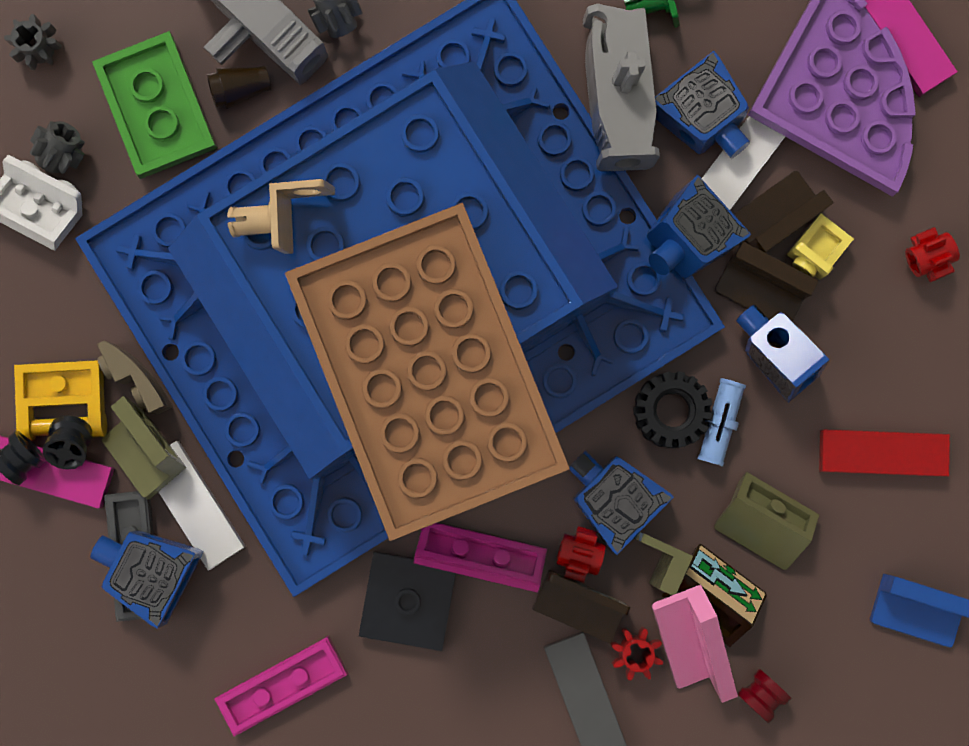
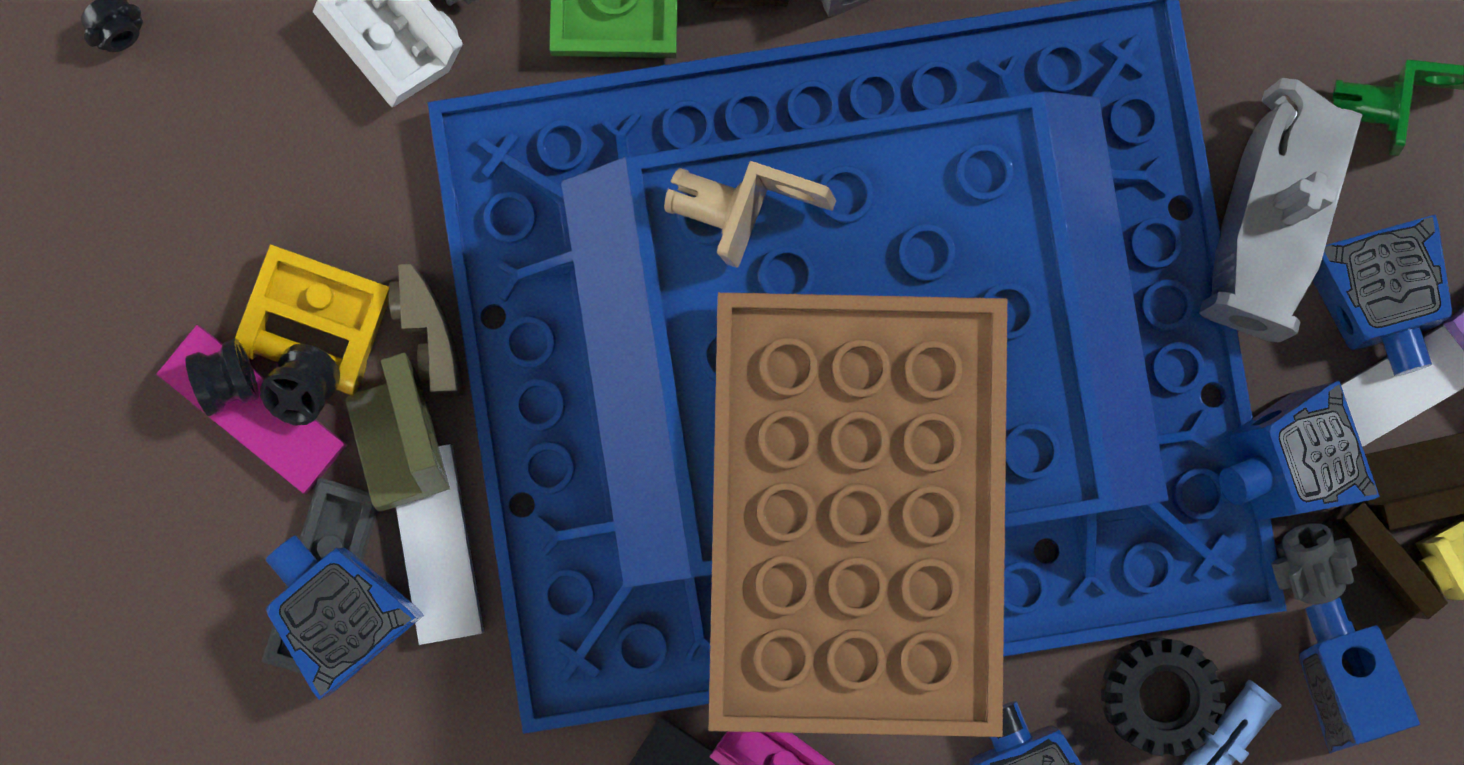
camera: 20 degrees right, 0 degrees up
(729, 291) = (1314, 563): none -> dark grey gear

